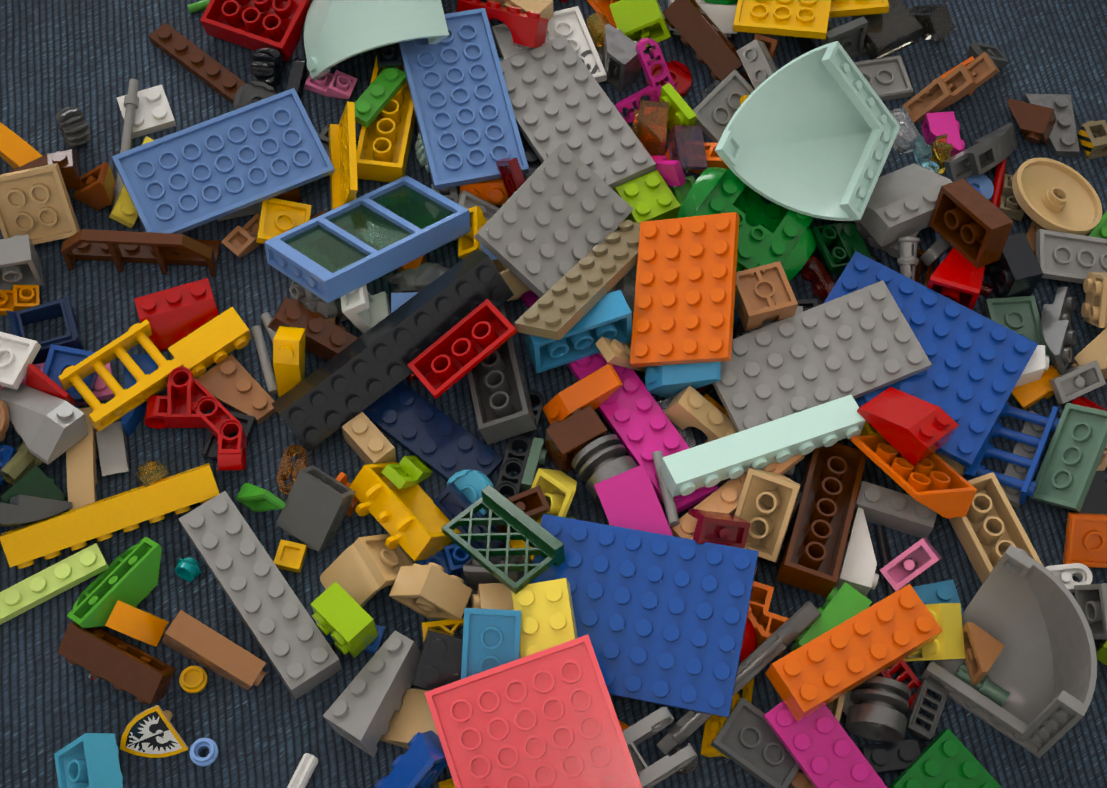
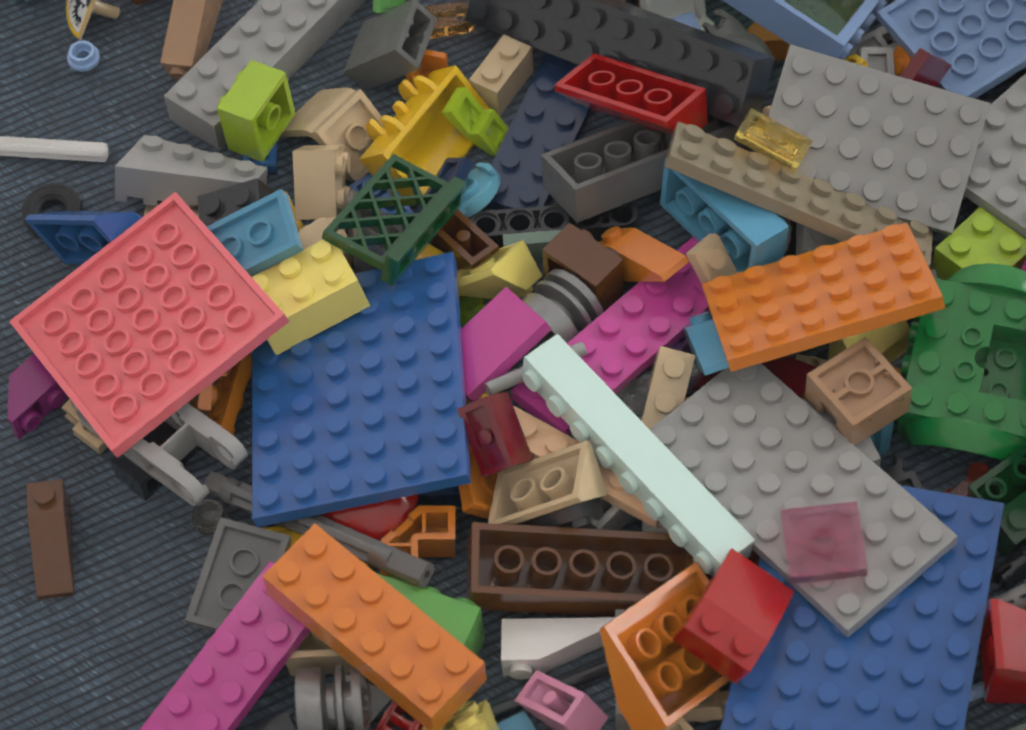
camera: 80 degrees right, 5 degrees down
(193, 679) = (158, 18): yellow plate -> none
(290, 556) = (332, 52): yellow plate -> none
(546, 273) = (773, 139): none -> clear yellow plate
(874, 352) = (823, 542): none -> clear pink plate

